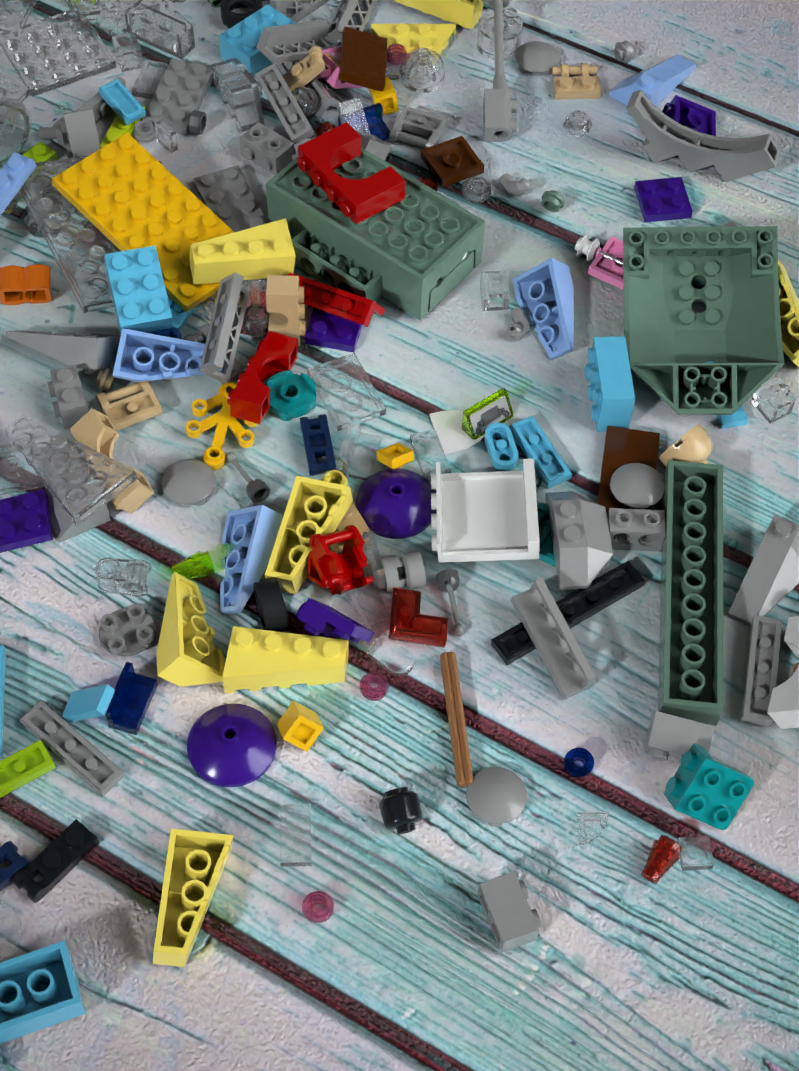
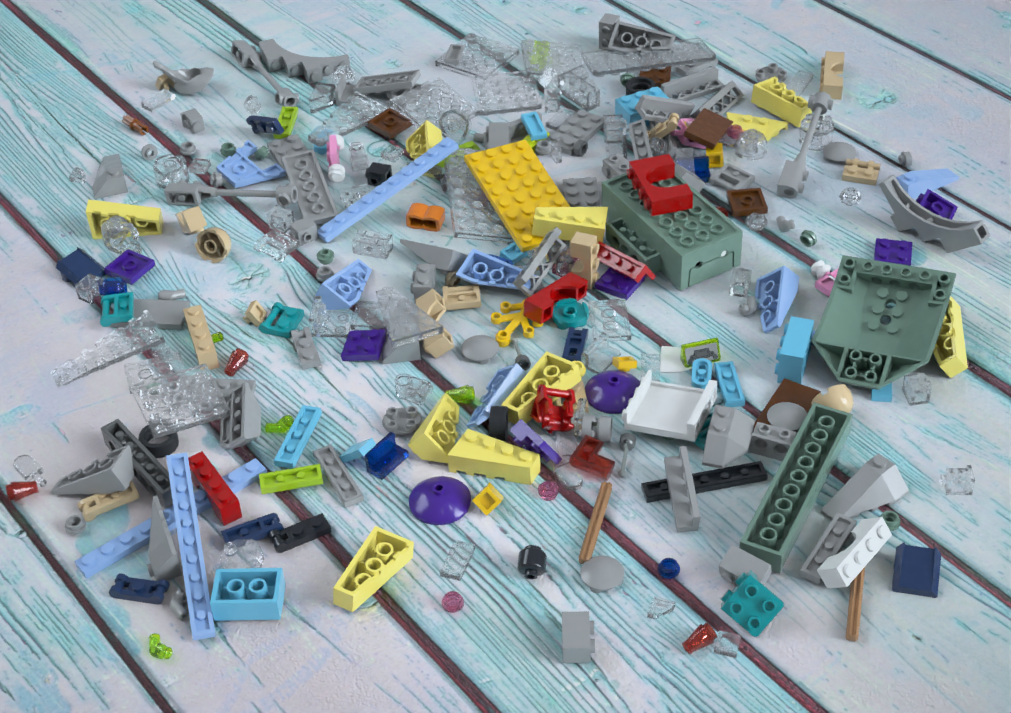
camera: 25 degrees right, 15 degrees down
(138, 290) = (492, 228): medium azure brick -> none

